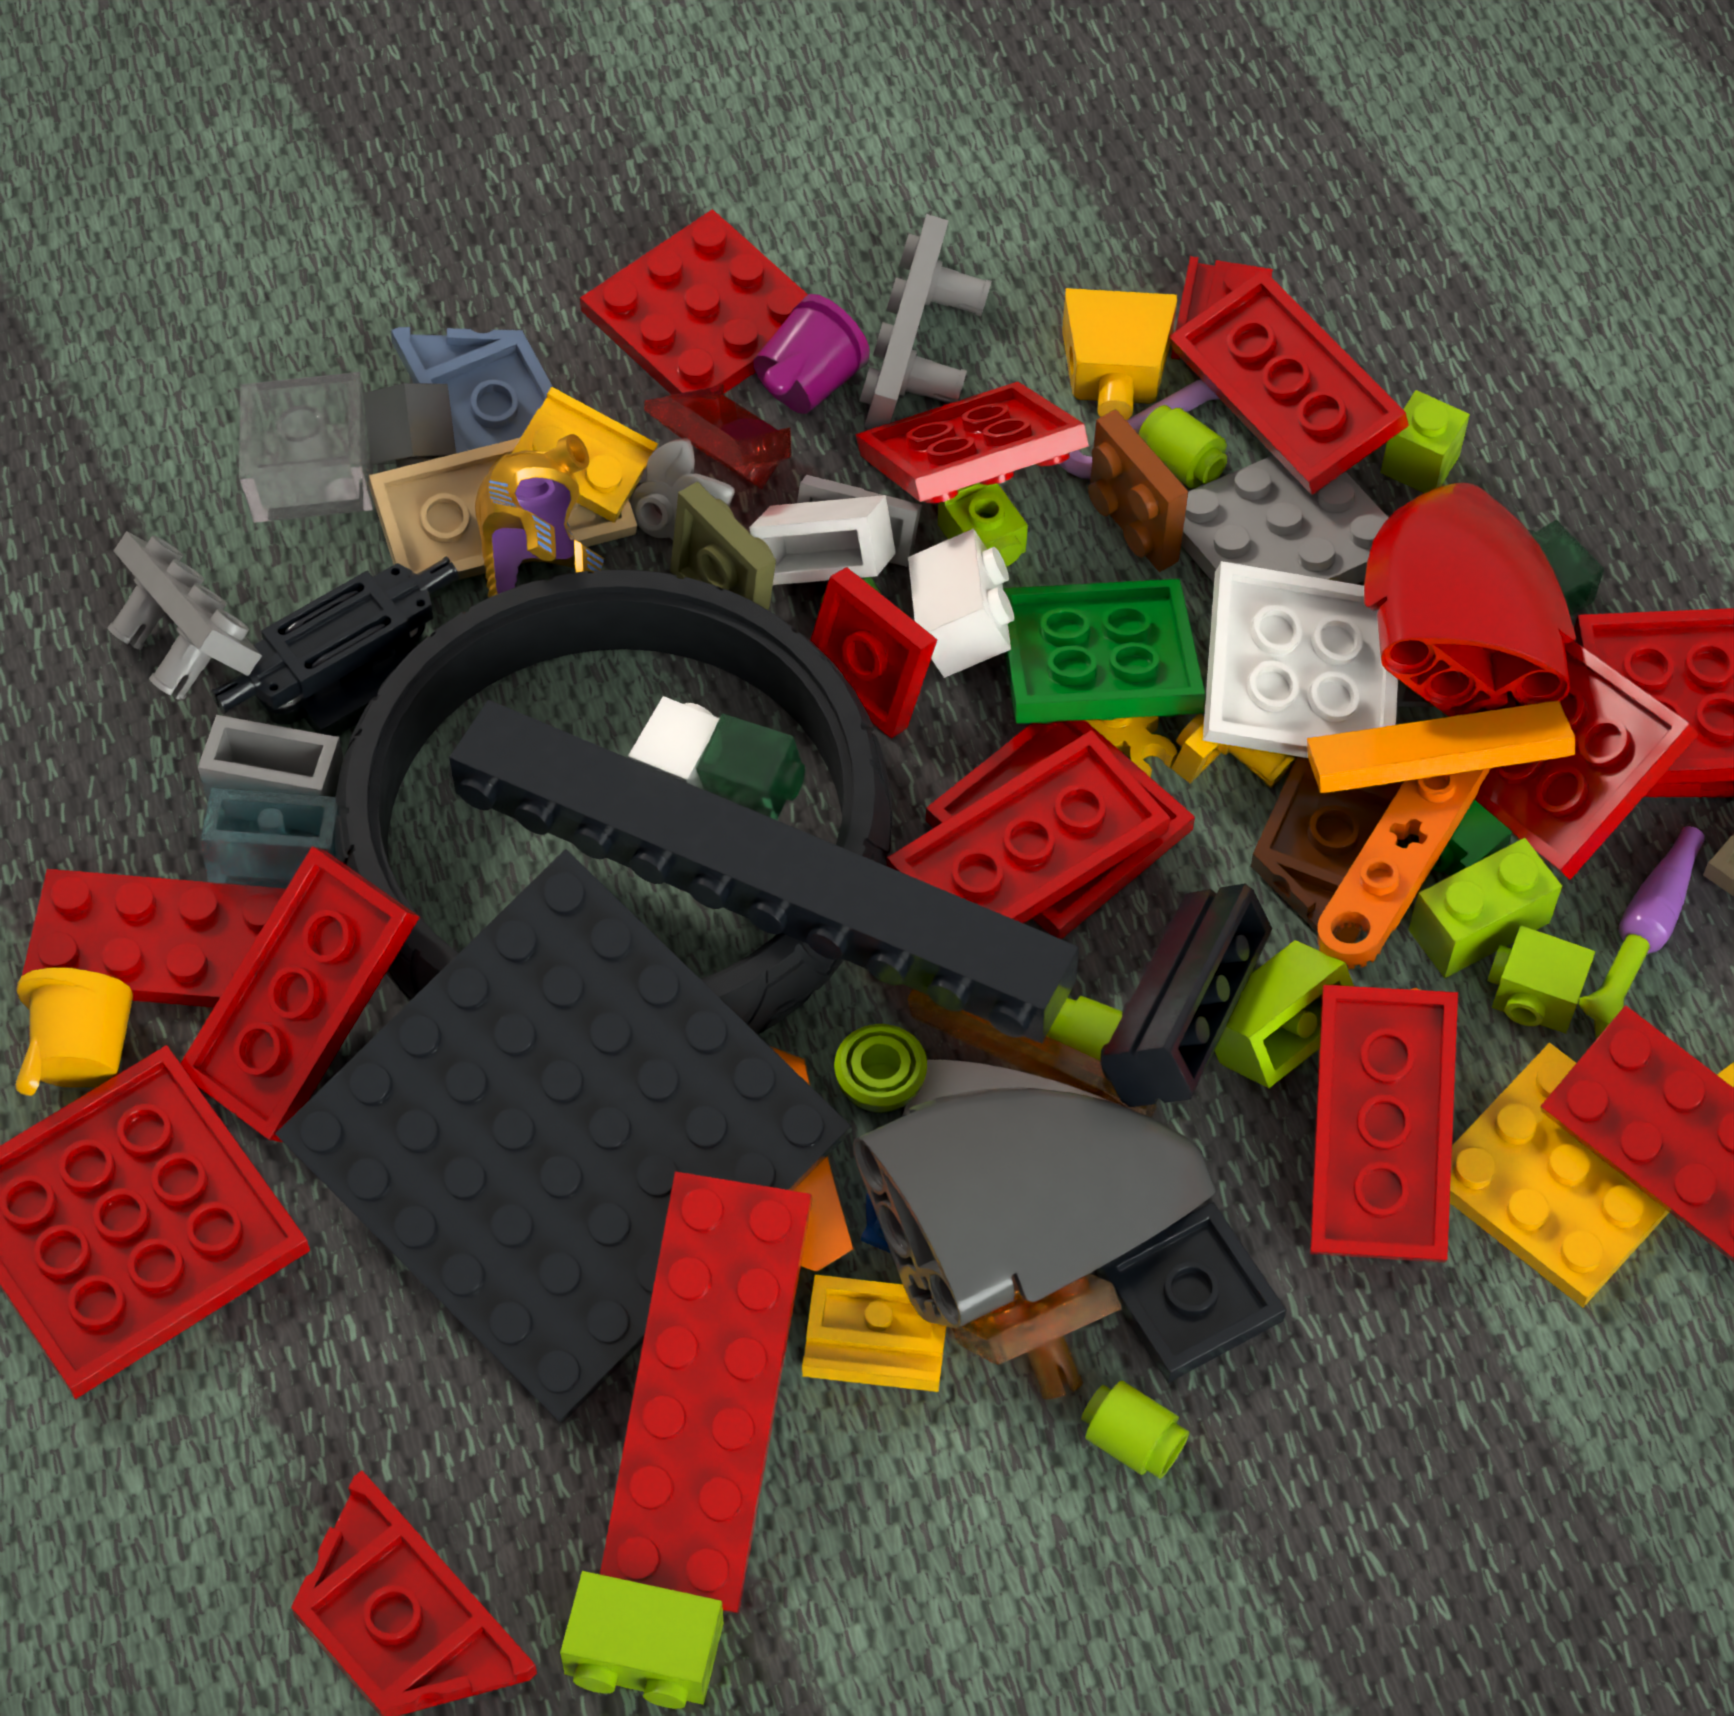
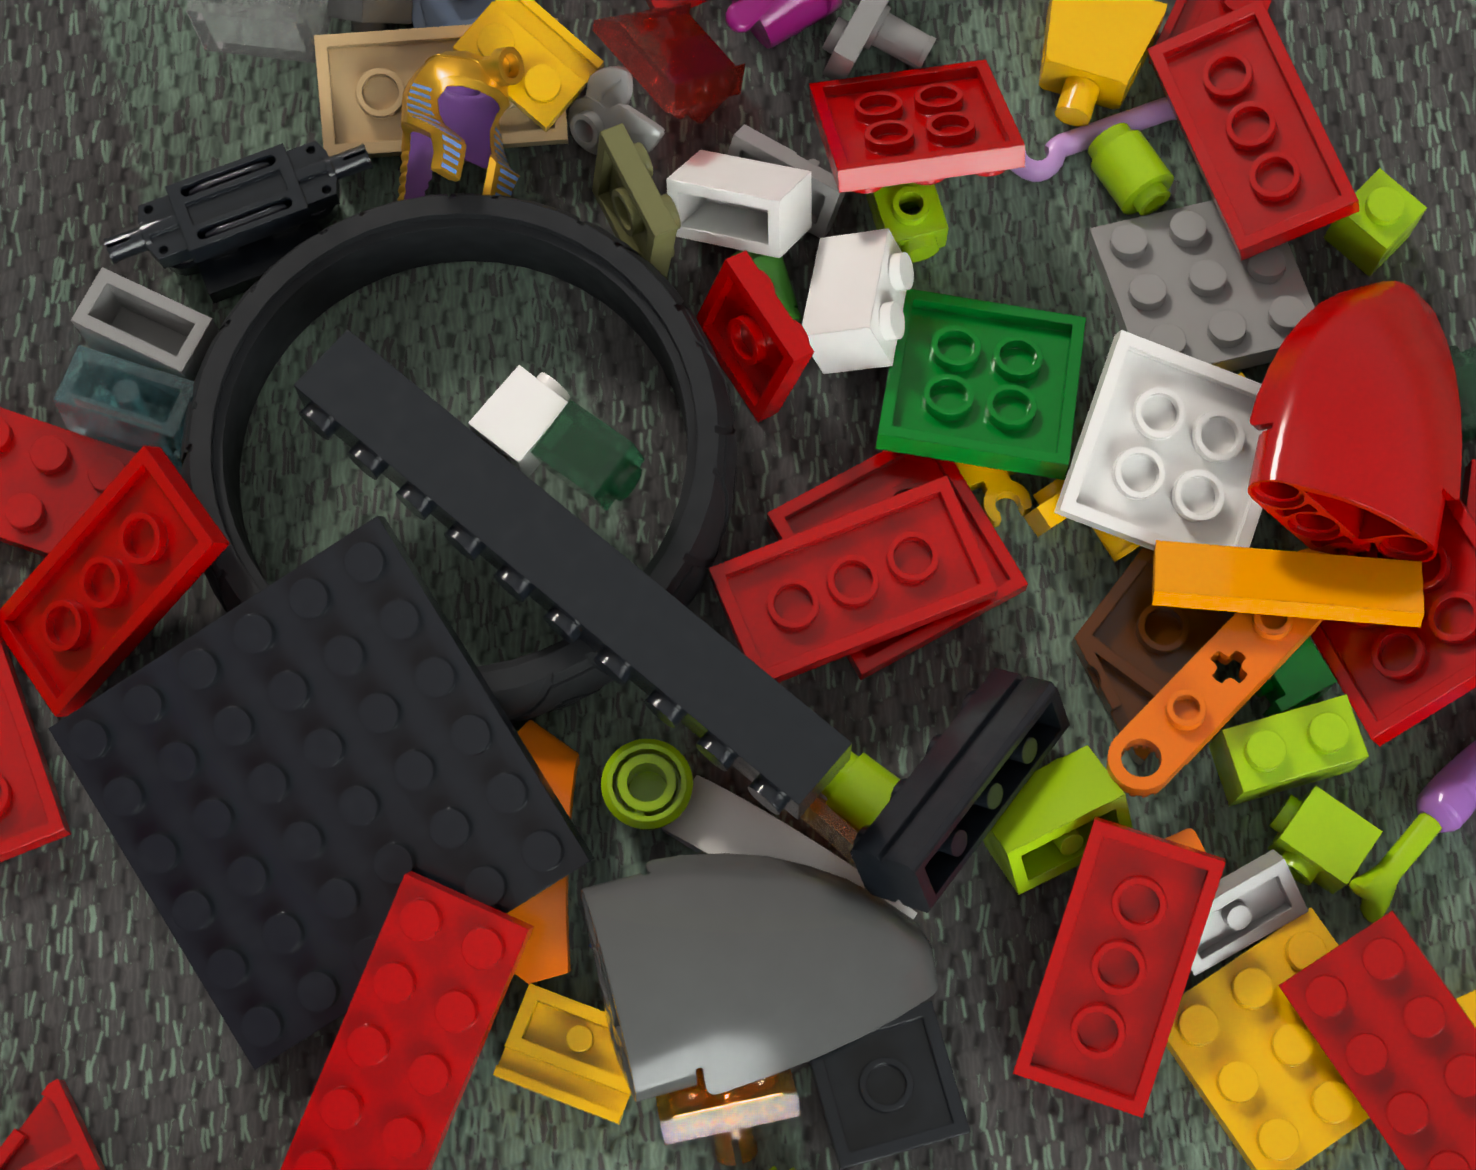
camera: 15 degrees right, 15 degrees up
(199, 613) = (102, 136): light grey plate -> none
(1137, 491) = (1065, 213): dark orange plate -> none
(1490, 1053) = (1247, 908): none -> light grey plate

